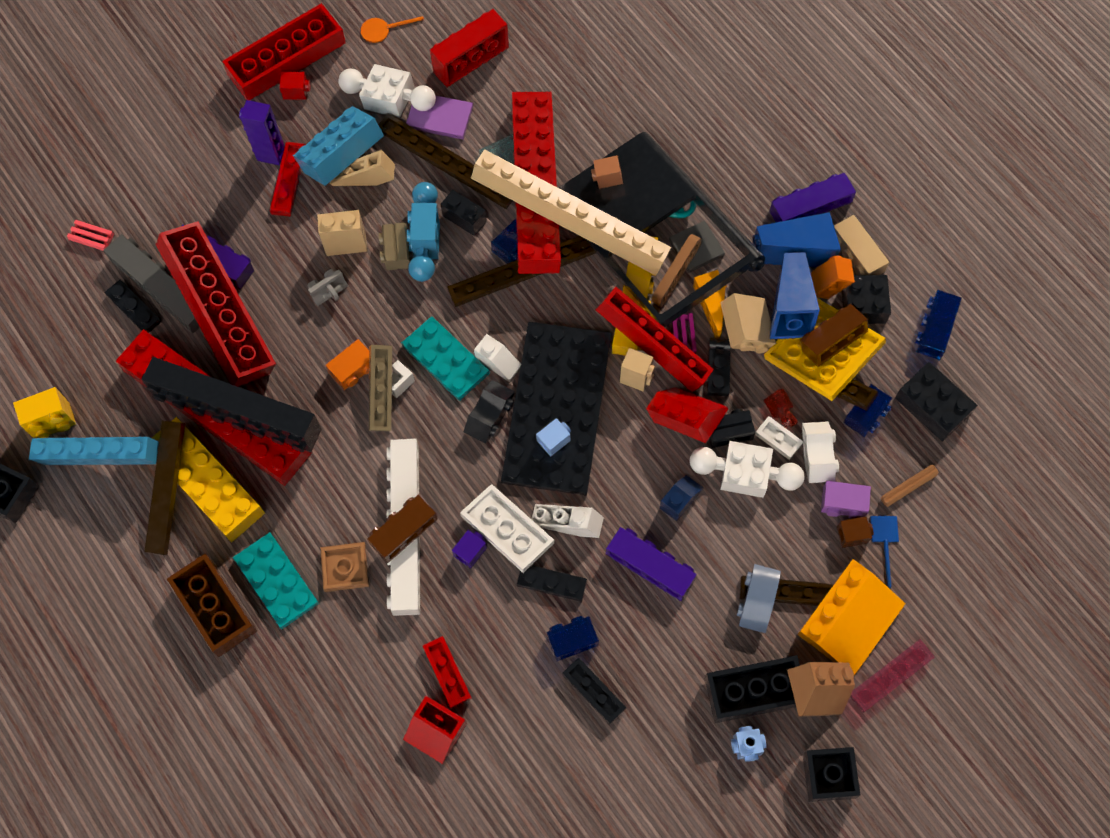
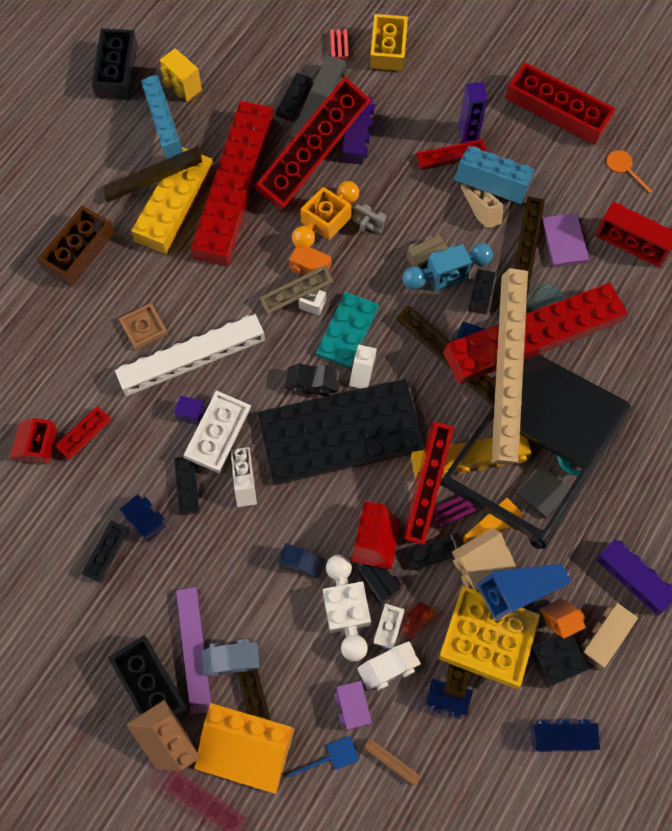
camera: 65 degrees right, 0 degrees up
(120, 182) = (388, 42): none -> yellow brick
(232, 404) = (228, 187): black brick -> none
(276, 580) = (114, 283): teal plate -> none
(294, 85) = (534, 123): red brick -> none
(303, 326) = (325, 214): none -> light orange brick
(342, 233) = (416, 207): tan brick -> none
(387, 90) = (564, 190): white brick -> none
(402, 528) = (181, 350): reddish brown brick -> none
(554, 436) = (307, 435): light blue brick -> none
(607, 172) = (571, 386): nougat brick -> none
(637, 370) = (397, 480): tan brick -> none
(651, 563) = (229, 557): dark purple brick -> none
(676, 270) = (508, 480): medium nougat beam -> none
(732, 635) = (192, 648): none -> medium lavender tile
(746, 752) = (107, 694): light blue brick -> none
(808, 234) = (591, 582): blue slope -> none
(831, 774) = (94, 775): black brick -> none
(834, 335) = (502, 638): reddish brown brick -> none
(855, 532) = (326, 725): reddish brown brick -> none
(935, 401) = (484, 759): black brick -> none

